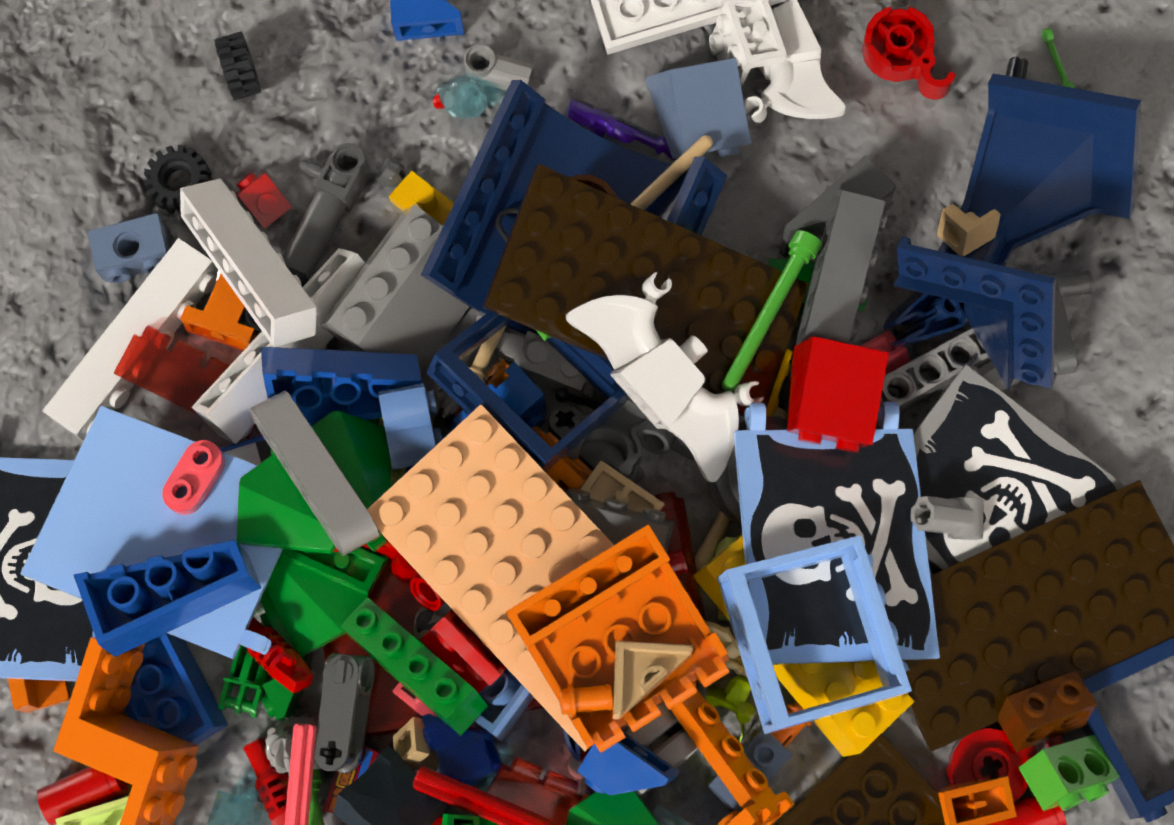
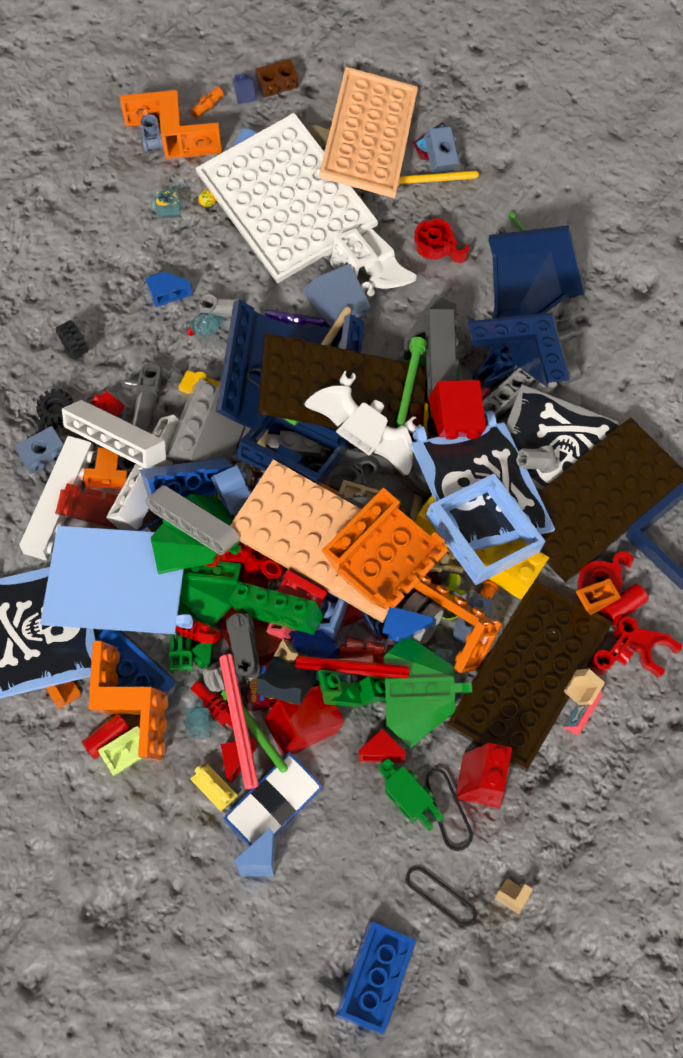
camera: 20 degrees left, 10 degrees down
(162, 594) = (129, 604): blue wedge -> none
(197, 478) = (123, 545): coral plate -> none
(585, 699) = (379, 584): orange pin -> none
(641, 669) = (402, 561): tan tile -> none
(966, 231) = (493, 312): tan panel -> none
(1046, 711) = (619, 541): reddish brown brick -> none
(1069, 773) = (641, 569): bright green brick -> none

